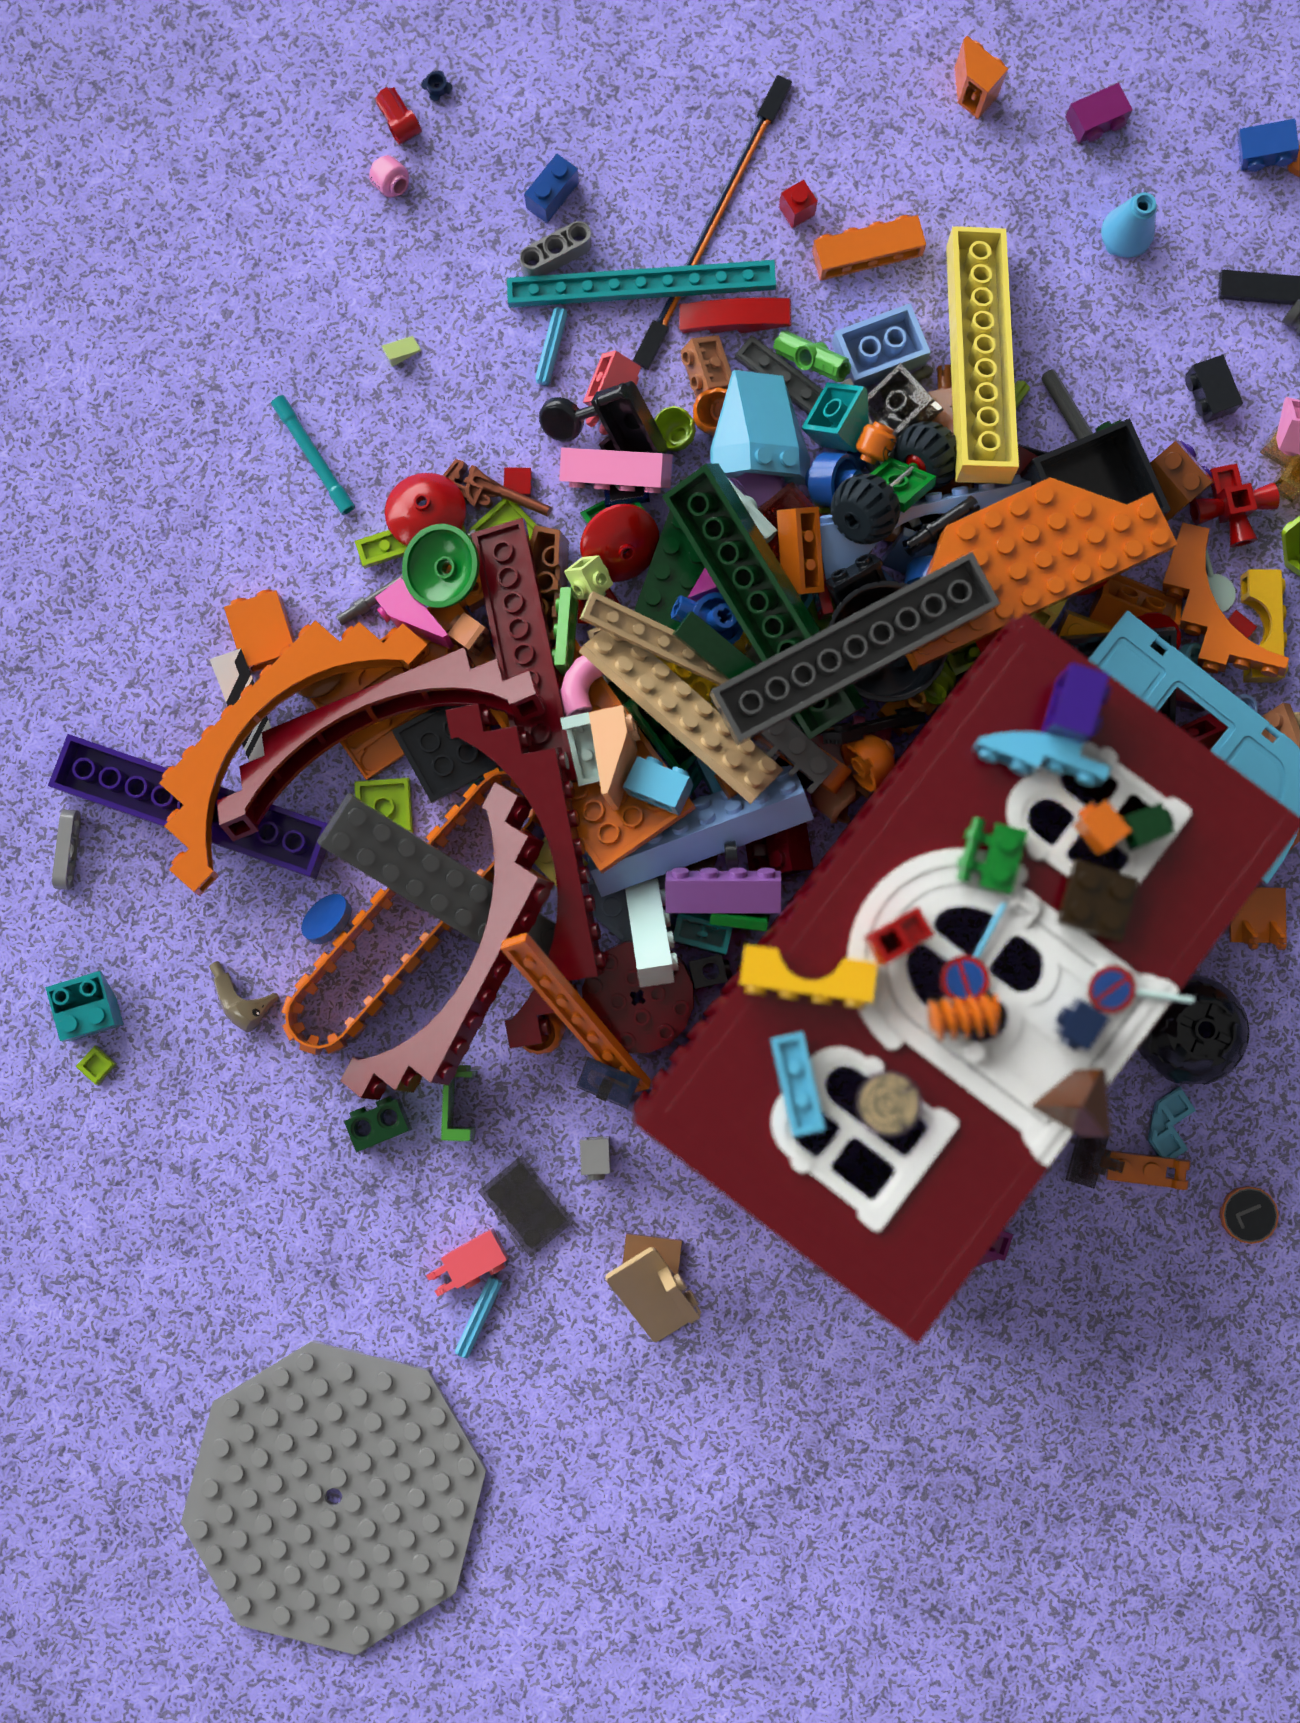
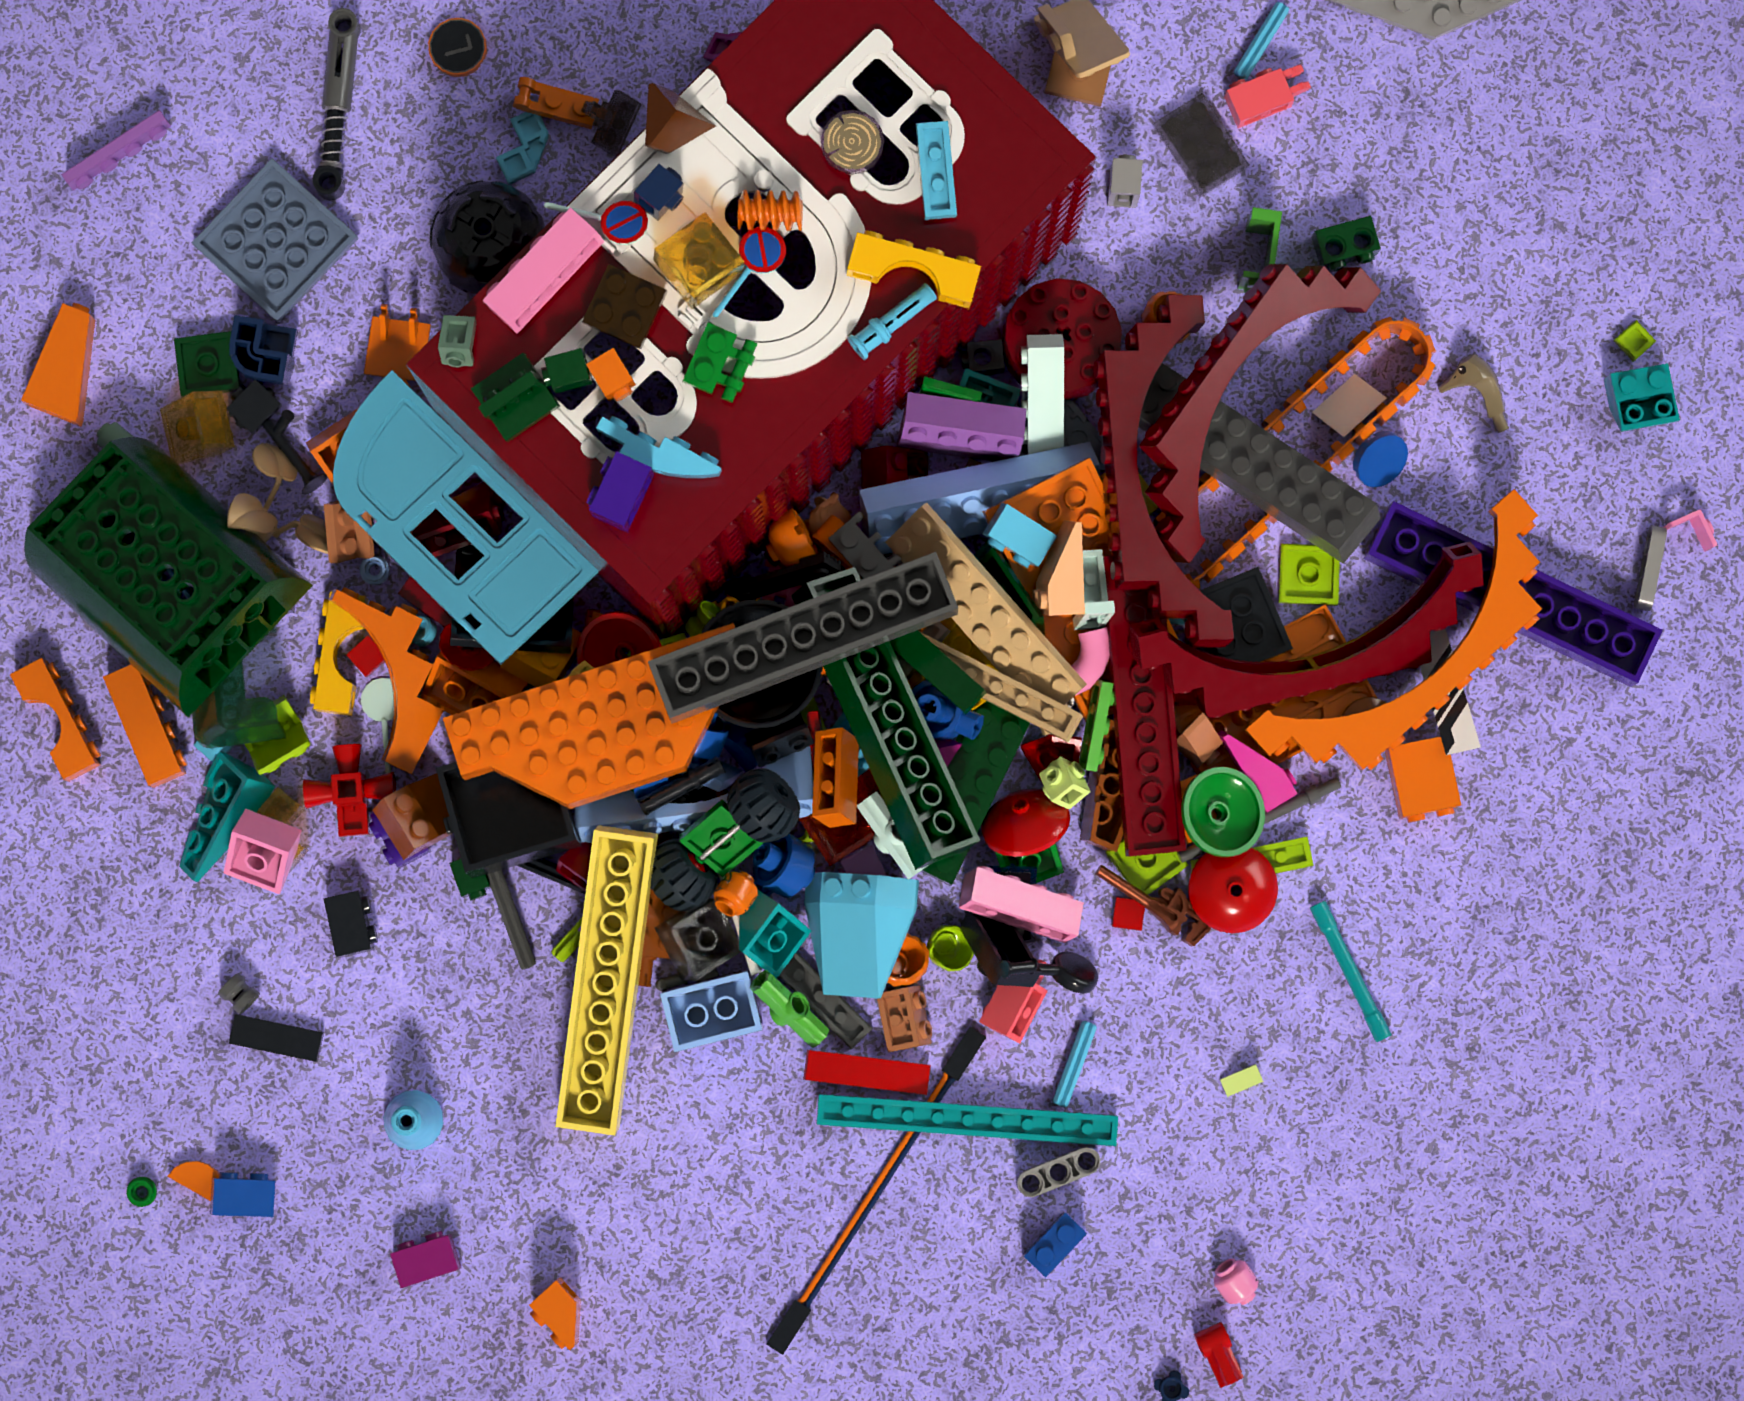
camera: 175 degrees left, 0 degrees up
(21, 894) = (1701, 526): none -> bright pink bracket
(360, 968) = (1349, 405): none -> white sticker
(570, 1006) = (1130, 314): orange plate -> none
(607, 1083) = (1104, 254): clear smoke piece -> none
(731, 855) = (950, 461): black tile -> none
(798, 203) = (780, 1192): red brick -> none
(833, 910) = (877, 328): none -> medium azure pin
(868, 247) = (707, 1133): orange brick -> none
(898, 936) = (828, 292): red brick -> none
(1031, 955) = (698, 260): none -> clear yellow brick
(1187, 927) = (543, 270): none -> bright pink brick
(1194, 795) = (515, 397): none -> dark green bracket
(1261, 847) = (457, 340): none -> sand green bracket

